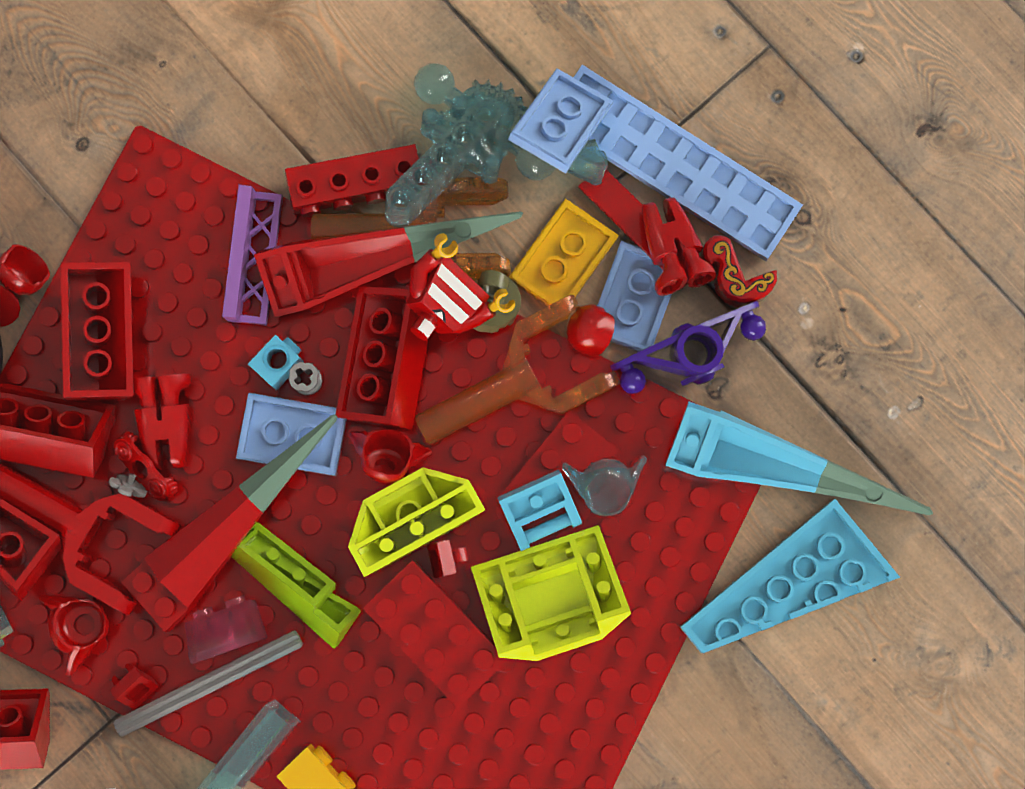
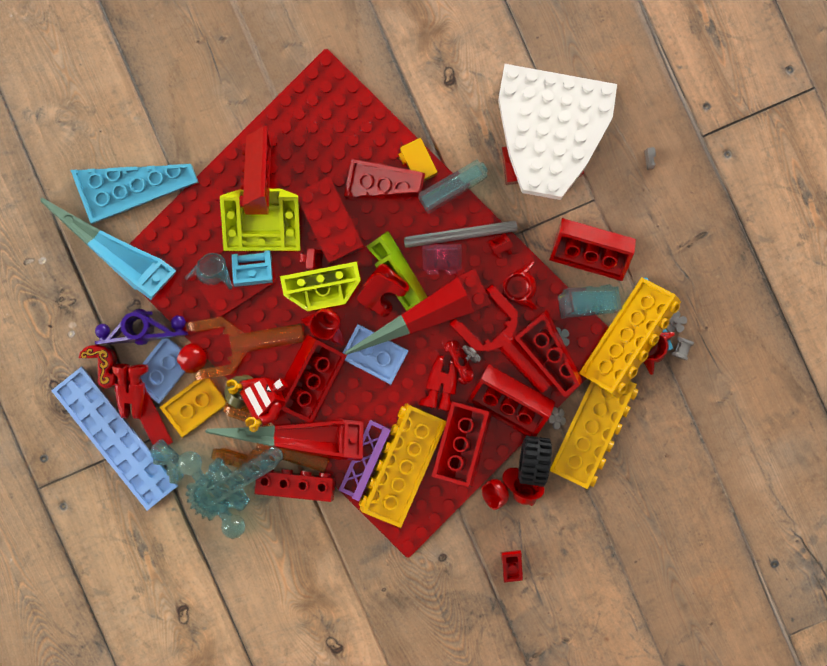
camera: 165 degrees left, 5 degrees up
(187, 267) = (402, 465): none -> yellow bracket
(262, 364) = (378, 396): medium azure brick -> none
(295, 379) = (351, 379): light grey bush -> none
(317, 552) = (379, 282): none -> red piece
(375, 730) = (379, 179): none -> wing
(560, 120) = (168, 479): light blue tile -> none
(583, 674) = (256, 172): none -> red slope

